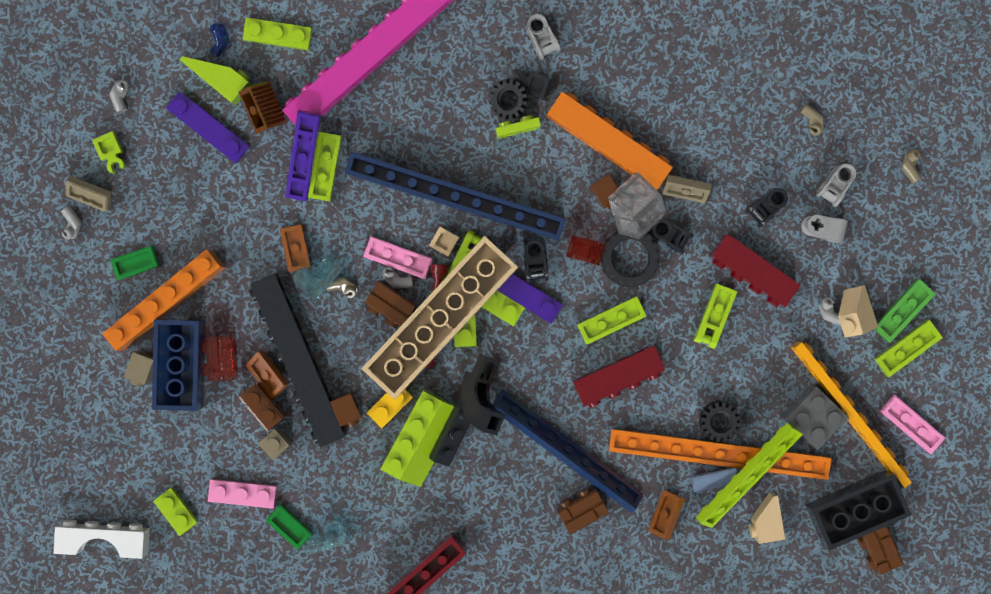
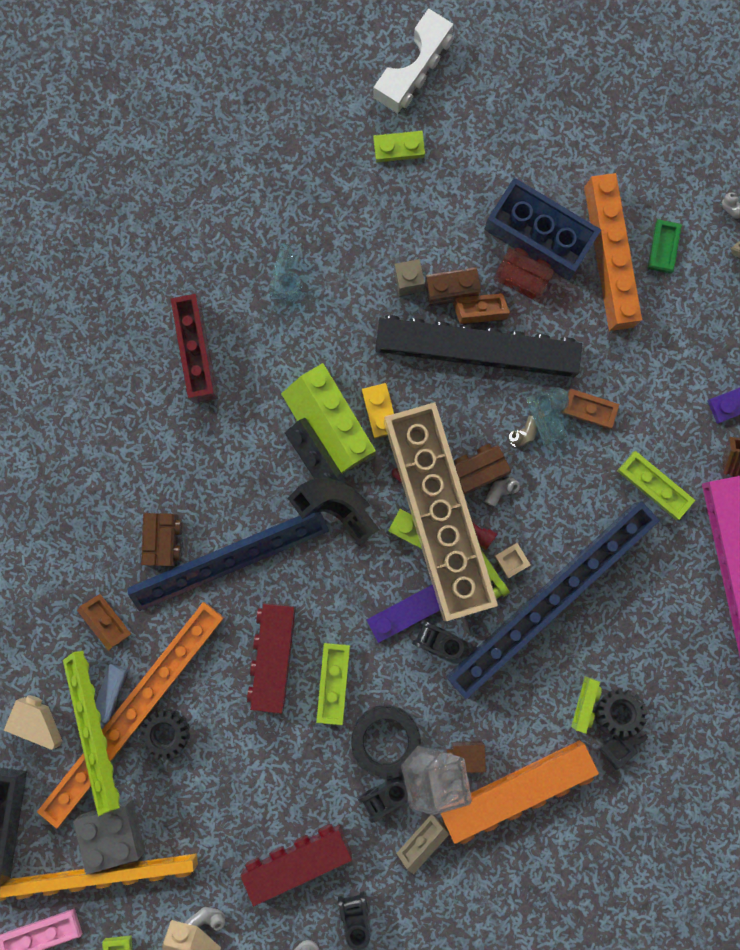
camera: 125 degrees right, 5 degrees down
(140, 369) = (559, 189): dark tan brick -> none
(242, 493) = (378, 218): bright pink plate -> none
(289, 526) = (319, 244): green tile -> none
(302, 155) = (682, 470): dark purple plate -> none
(346, 410) = (400, 365): reddish brown brick -> none
(398, 257) = (522, 505): bright pink tile -> none
(504, 308) = (410, 581): lime plate -> none
(543, 37) = (661, 786): light grey piece -> none
(585, 250) = (420, 700): clear red brick -> none
(715, 315) = (275, 795): lime plate -> none

